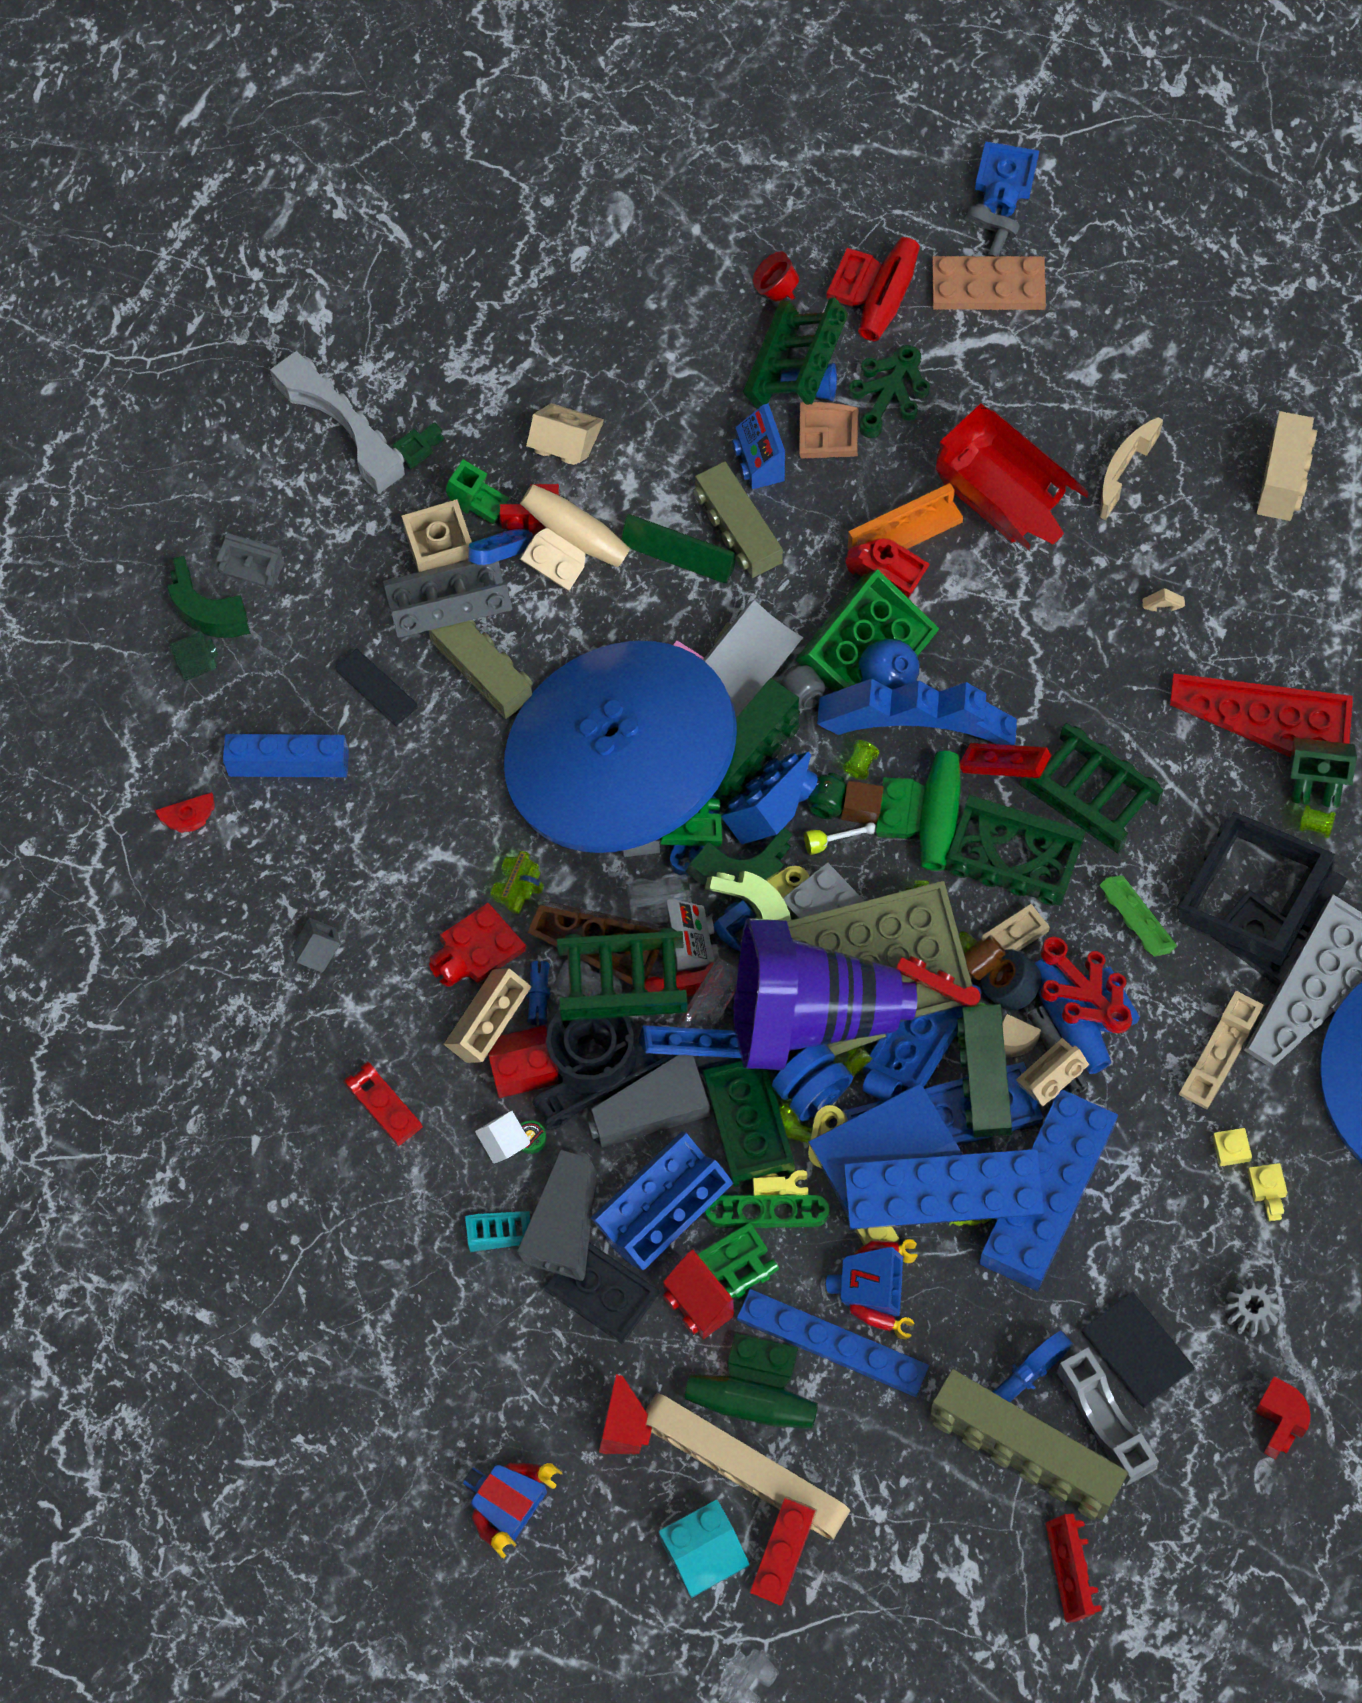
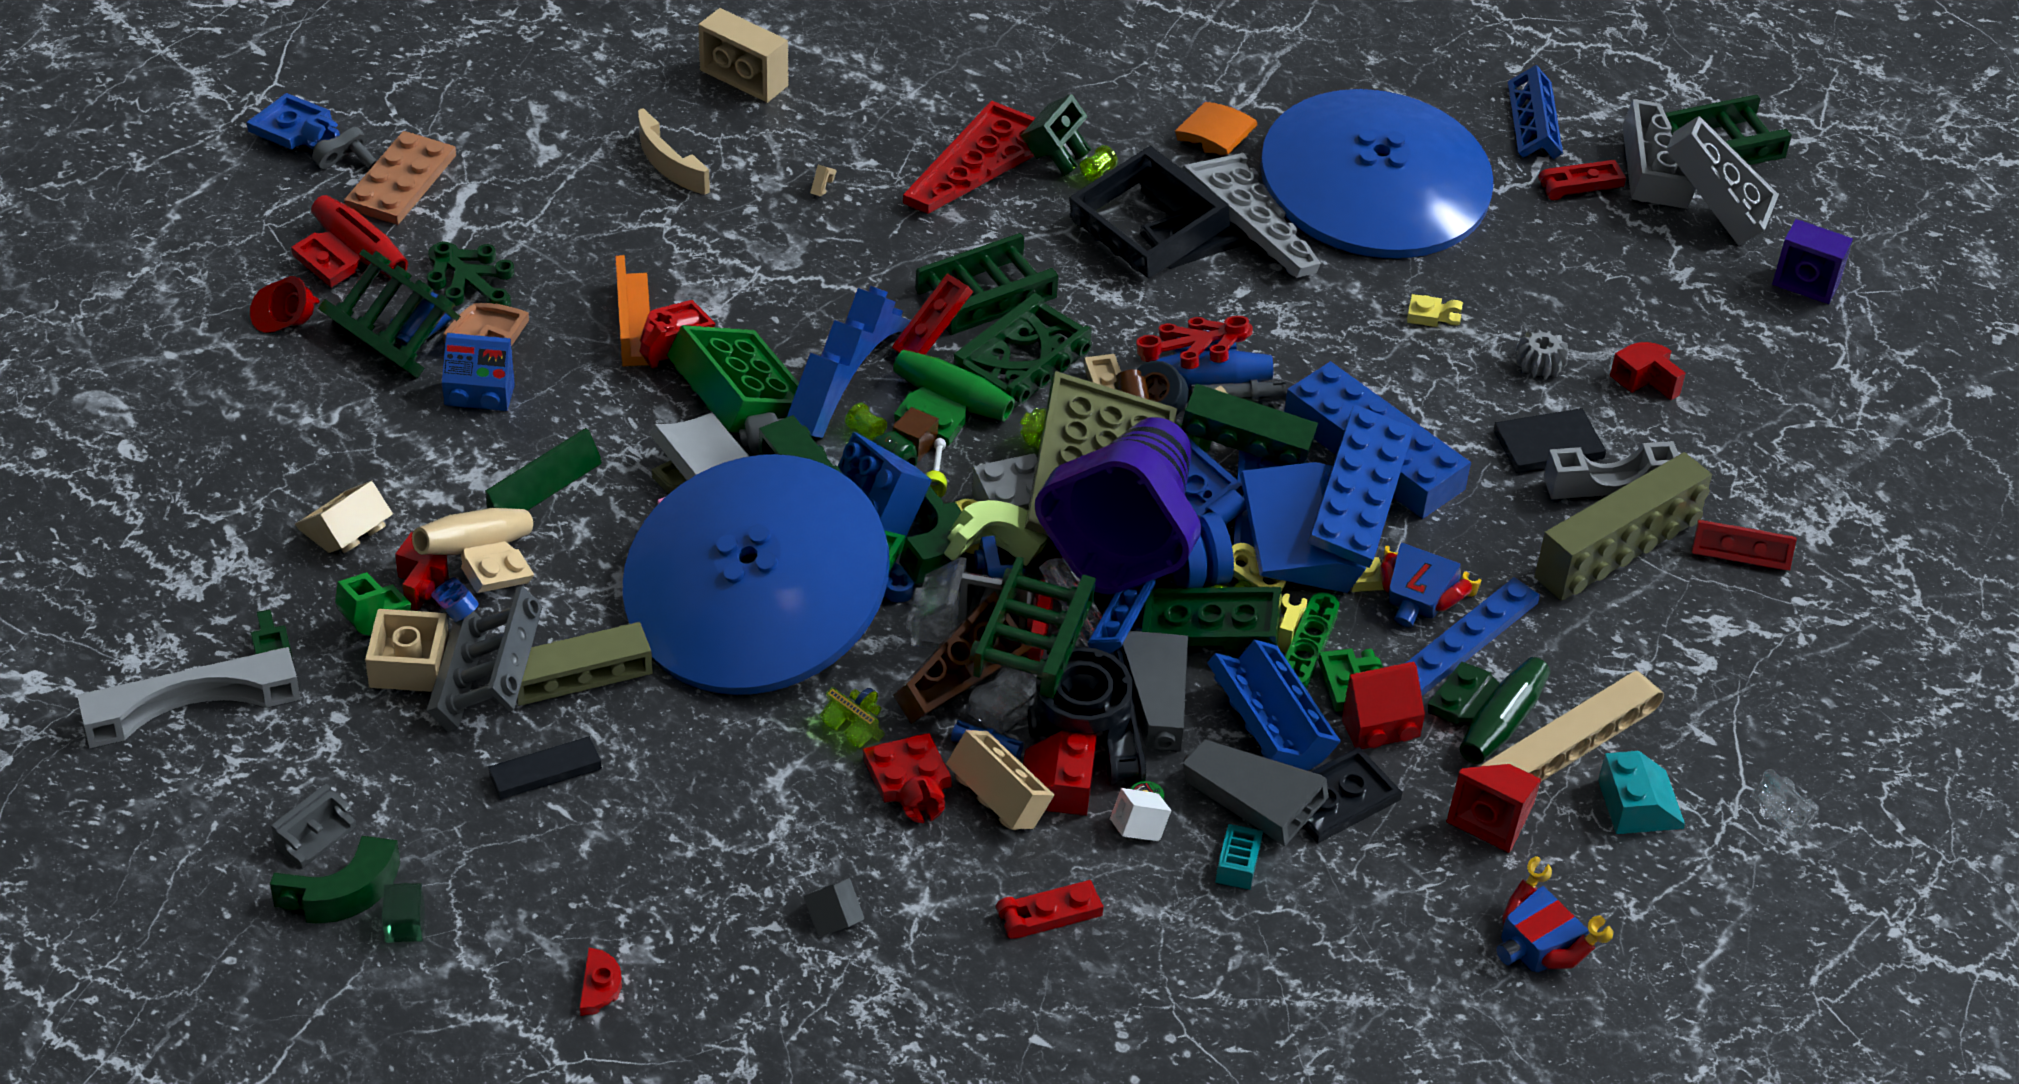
camera: 75 degrees left, 20 degrees down
(285, 755) = (586, 863): blue brick -> none
(738, 520) = (543, 417): olive brick -> none
(783, 1551) = (1667, 731): red plate -> none
(889, 663) = (781, 361): blue cylinder -> none
(940, 982) = (1167, 408): red plate -> none
(1003, 476) = (620, 218): red piece -> none
(1034, 1366) = (1545, 502): blue pin -> none
(1052, 1072) = (1268, 383): tan bracket -> none
(1137, 916) = (1132, 299): bright green plate -> none
(1221, 1050) = (1285, 294): tan slope -> none
(1232, 1147) = (1381, 320): light yellow plate -> none

